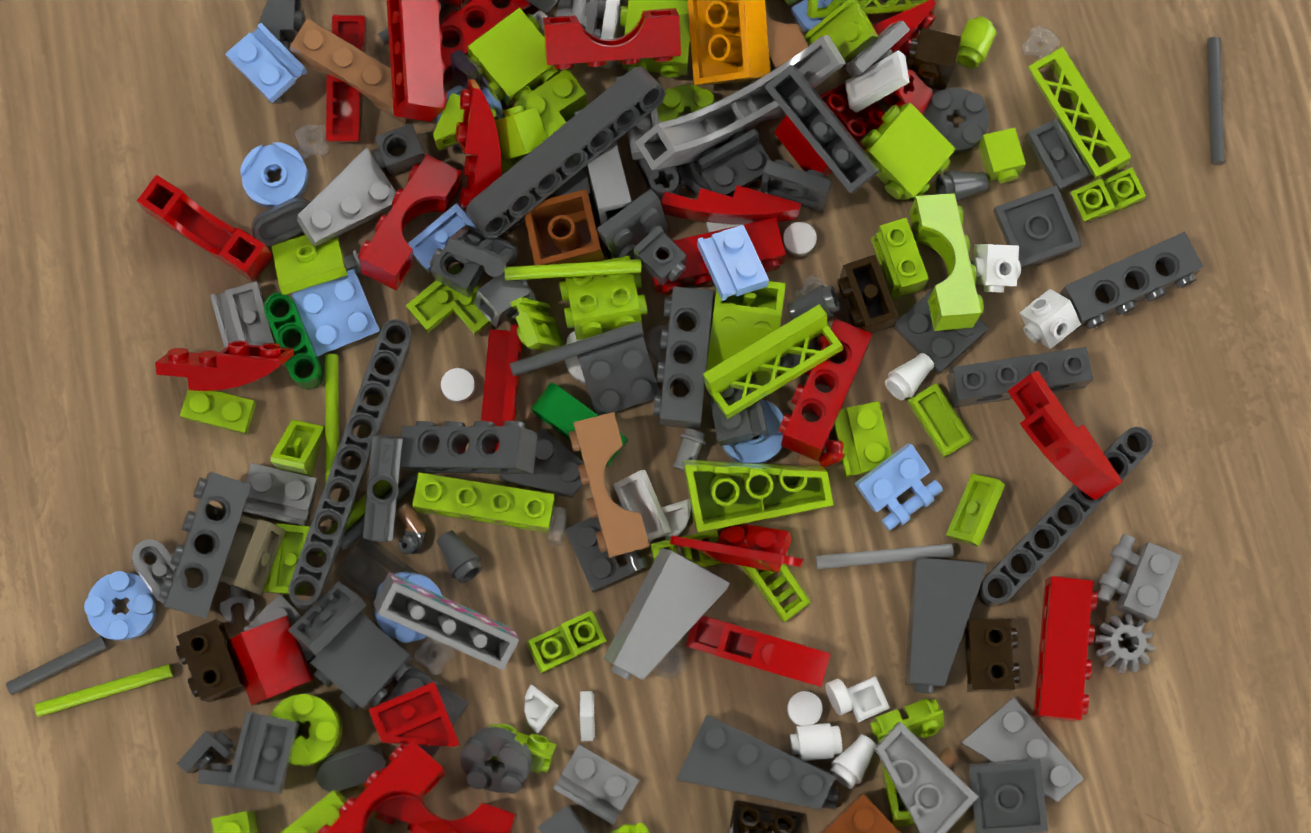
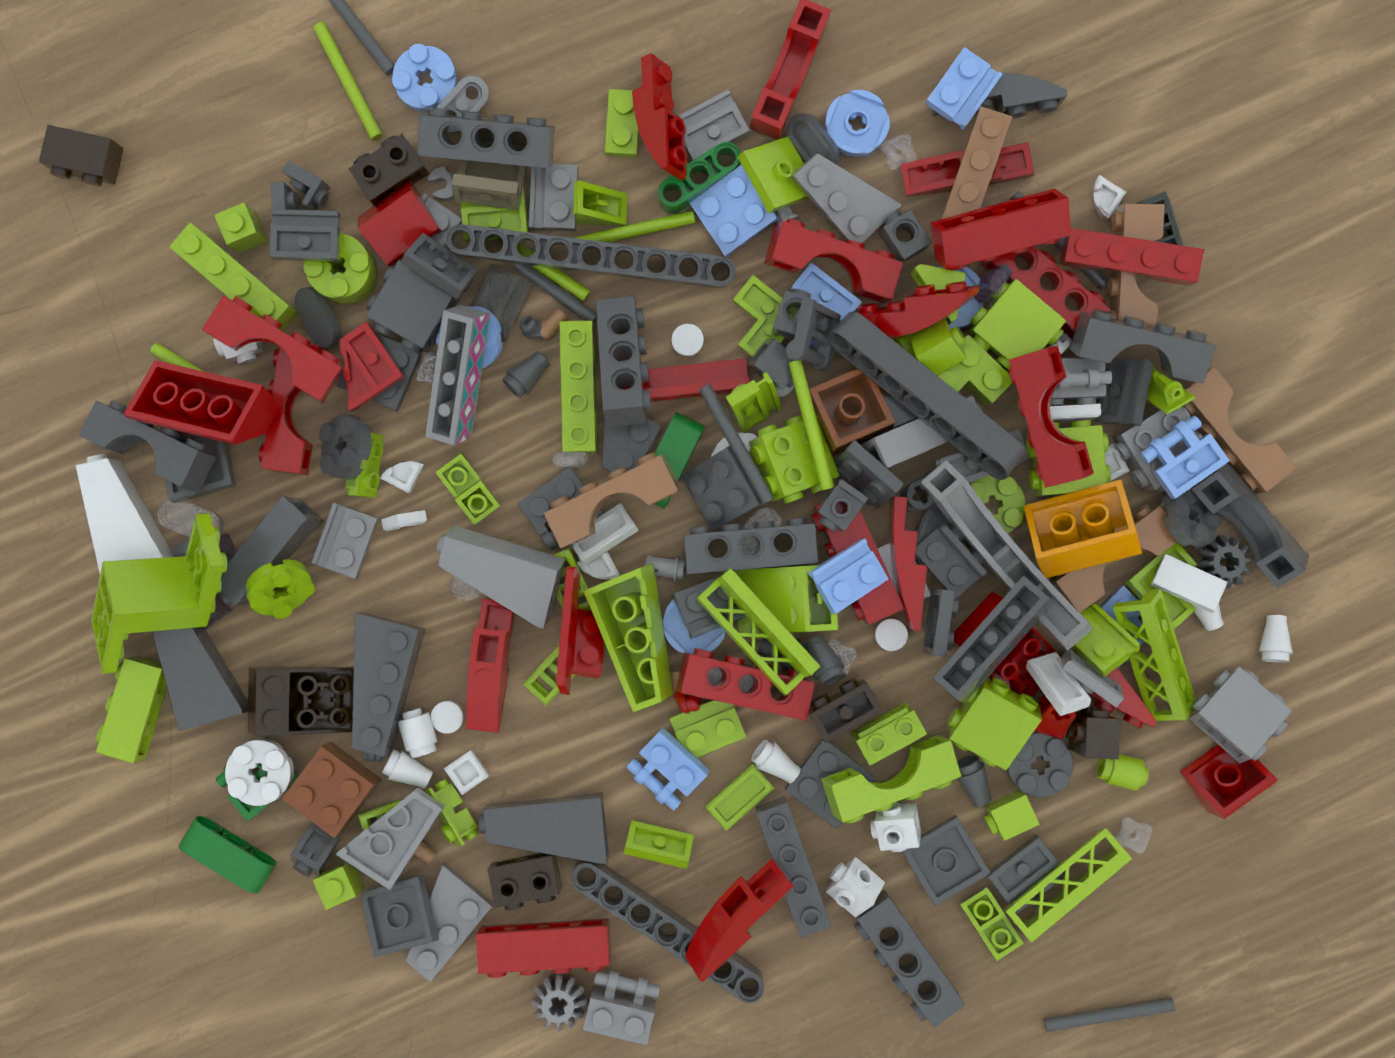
camera: 80 degrees right, 10 degrees up
(379, 509) = (590, 289): dark grey piece -> none
(839, 696) = (462, 746): white tile -> none
(883, 556) = (601, 766): light grey bar -> none

